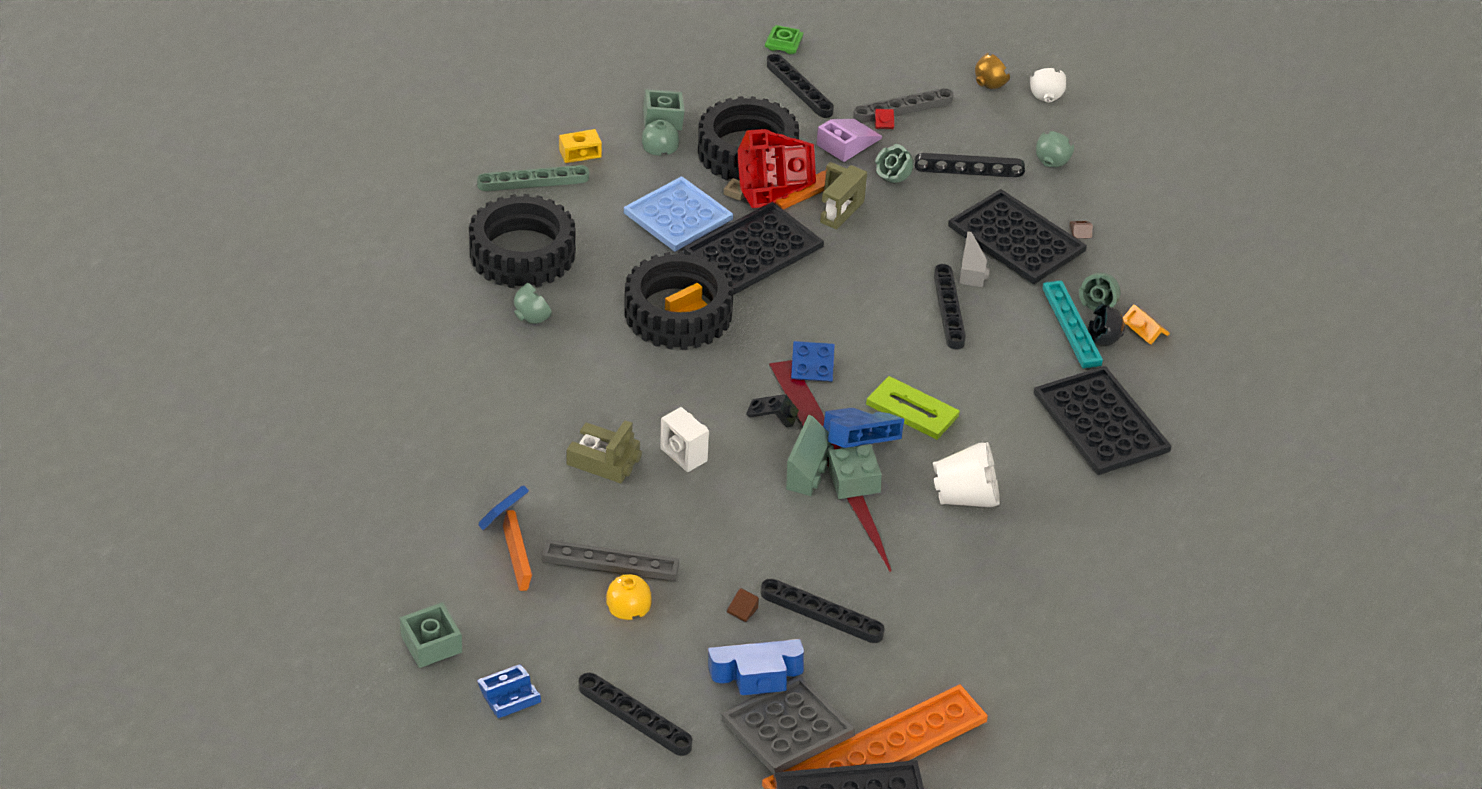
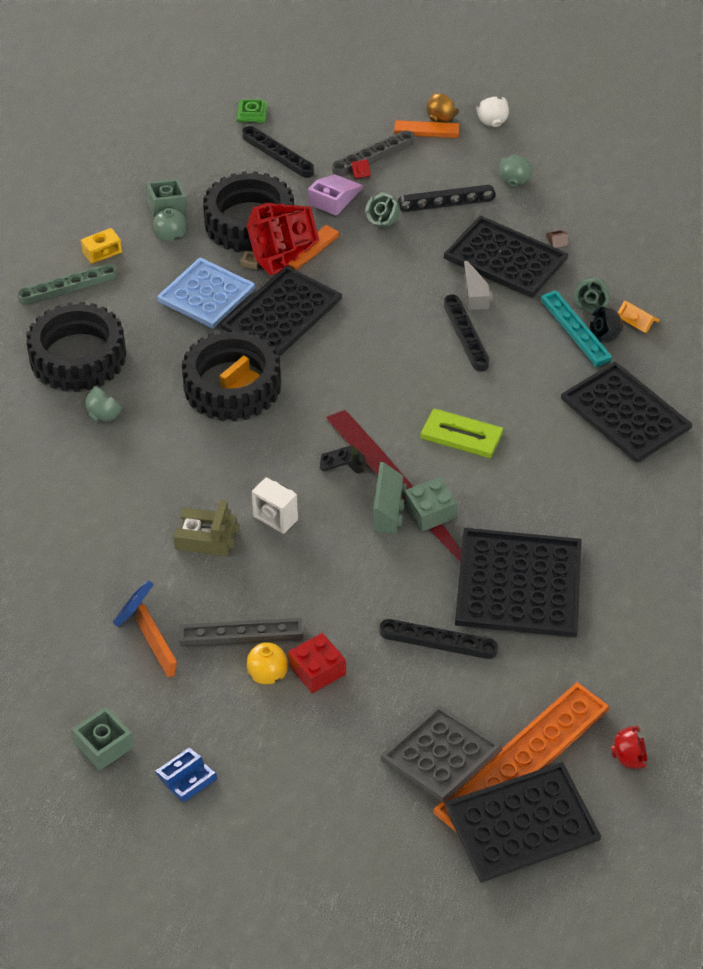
camera: 10 degrees left, 5 degrees up
(638, 710) = (301, 774): black beam -> none
(682, 607) = (317, 662): none -> red brick
(743, 605) = (369, 648): reddish brown slope -> none
(757, 666) = (398, 704): brick -> none
(812, 361) = (364, 408): blue hinge -> none
(842, 193) = (346, 245): olive brick -> none
(855, 427) = (423, 464): blue brick -> none
(928, 571) = (519, 582): none -> black plate
(968, 478) = (530, 490): white cone -> none
(972, 91) = (428, 129): none -> orange tile
(997, 763) = (630, 748): none -> red cylinder

